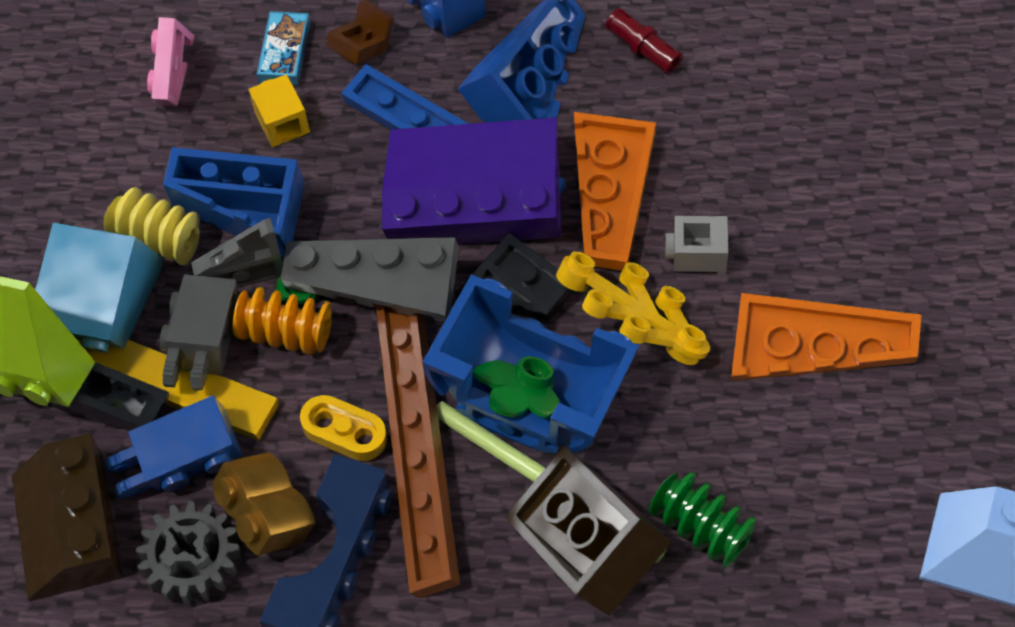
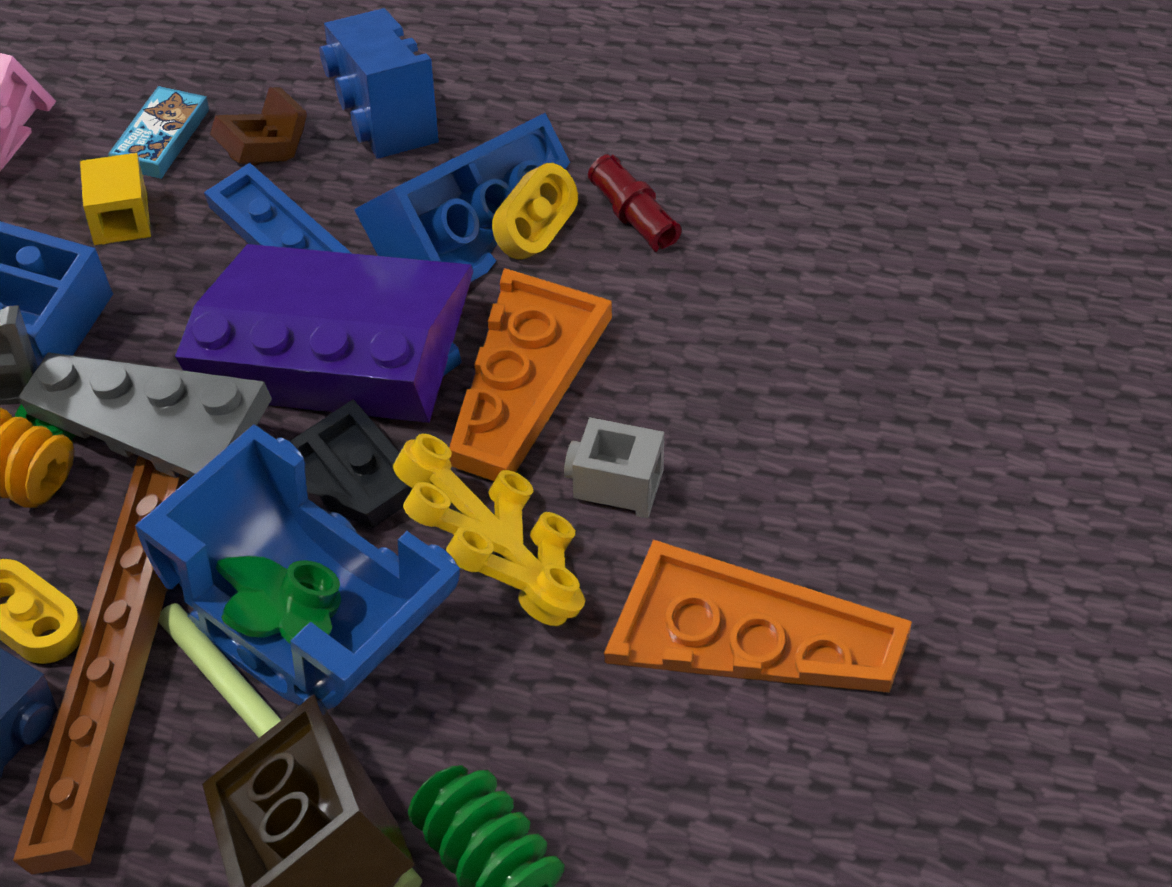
camera: 10 degrees right, 10 degrees down
(578, 62) = (531, 220): none -> yellow plate

